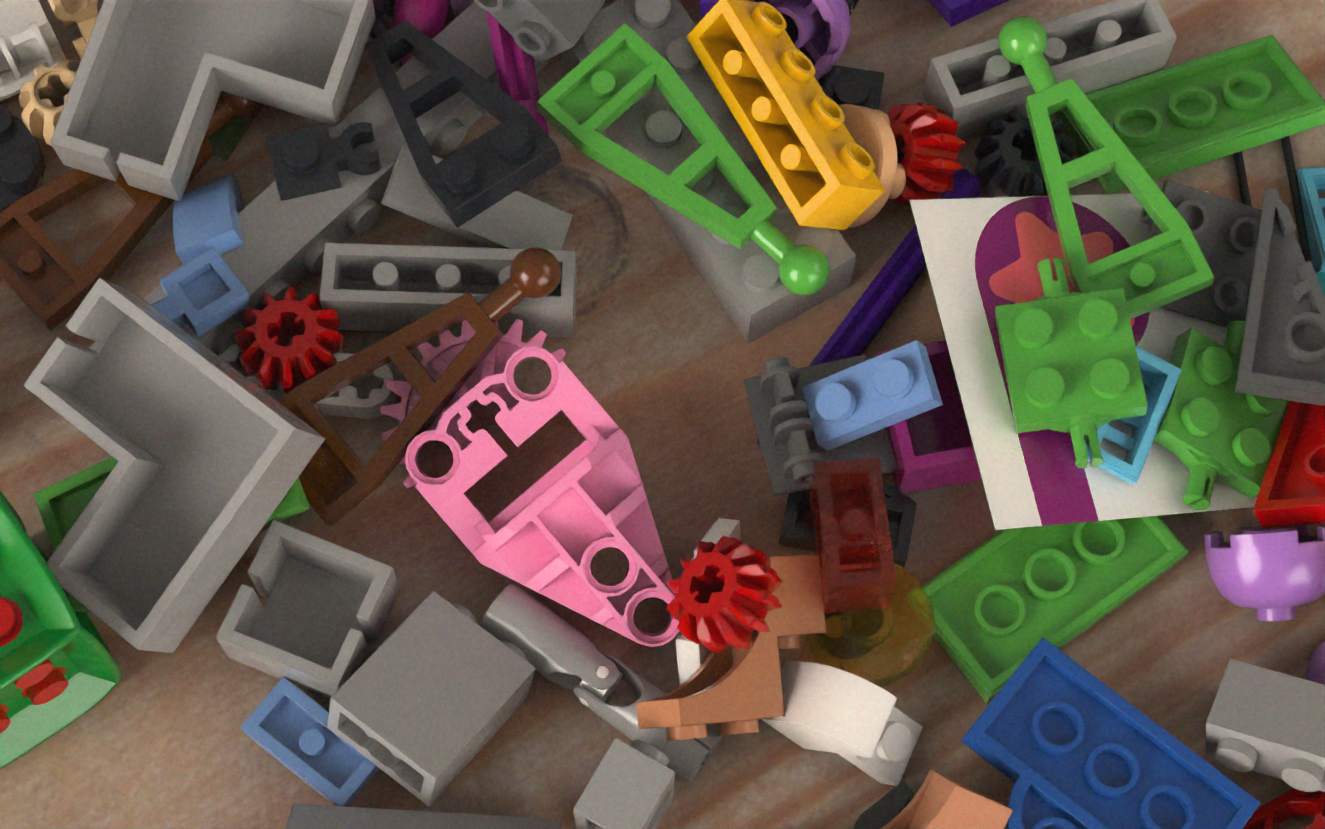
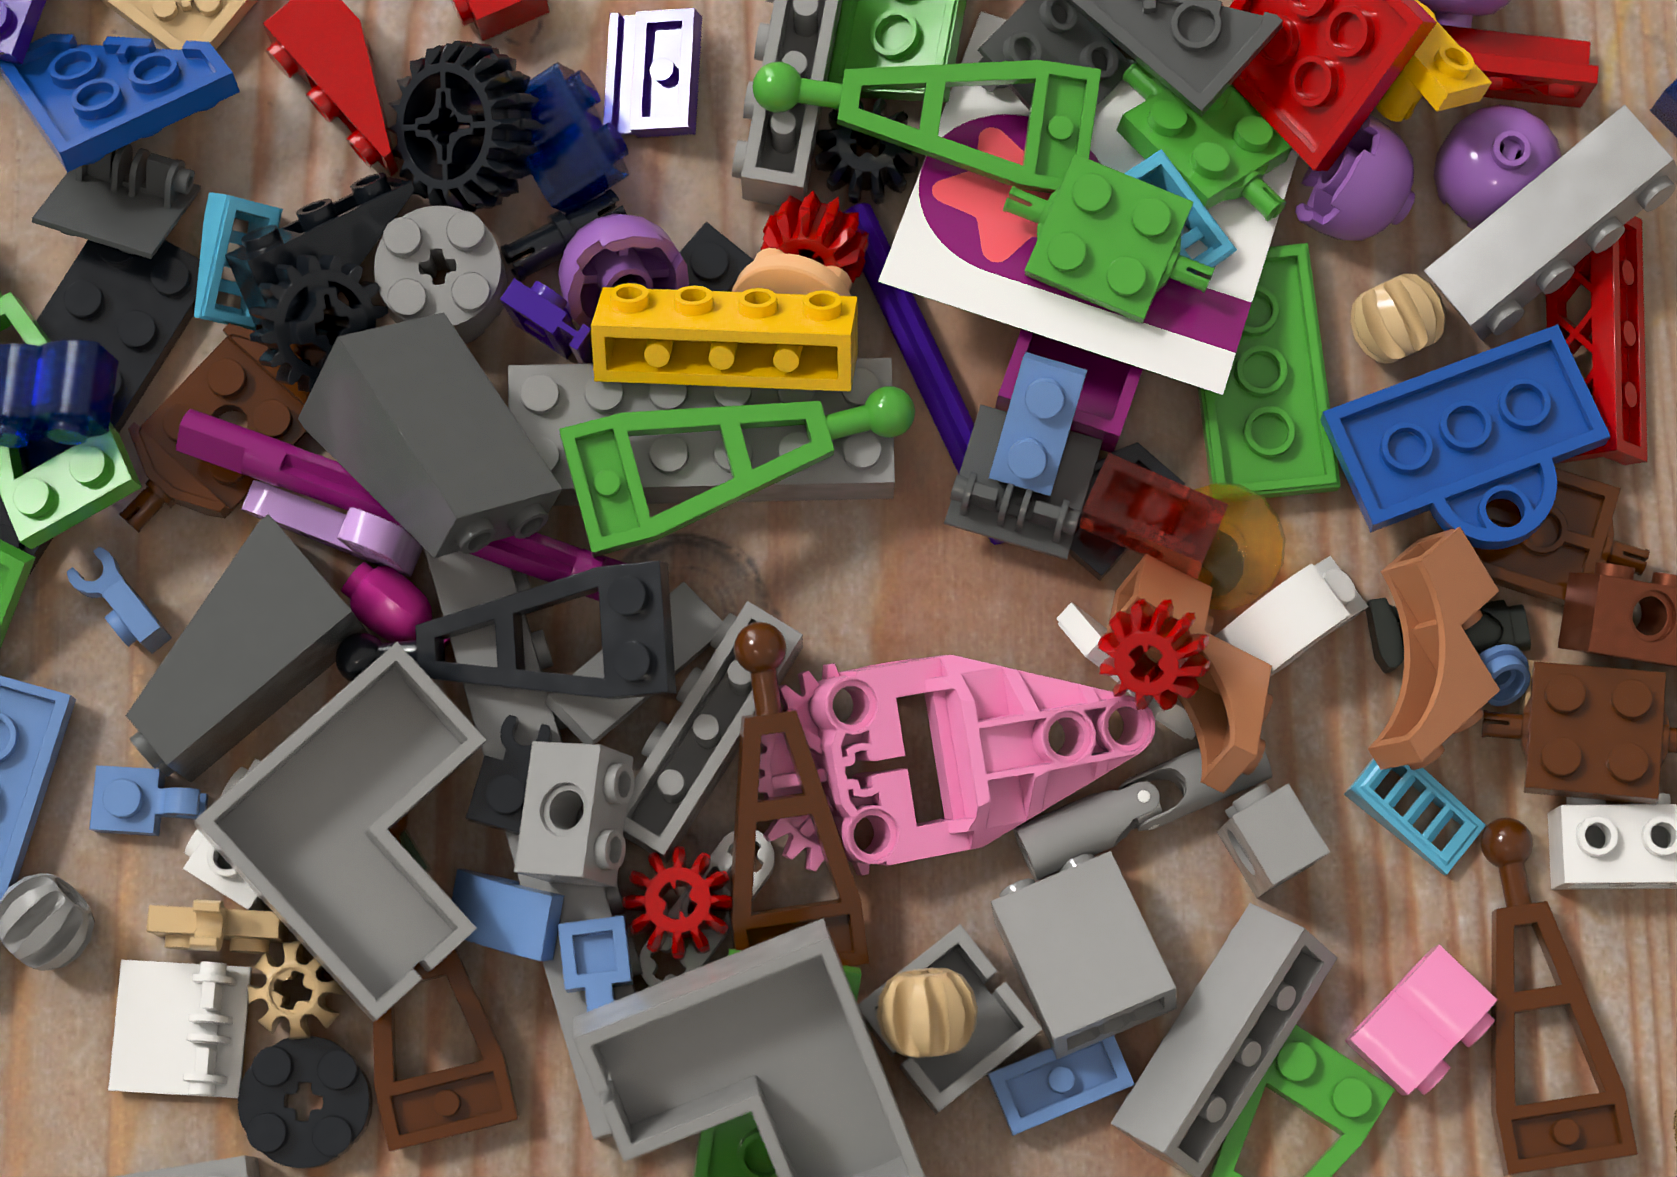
camera: 60 degrees left, 10 degrees up
(291, 571) = (927, 1012): none -> tan piece
(311, 207) = (557, 786): none -> light grey brick
(1174, 665) = (1398, 318): none -> tan piece

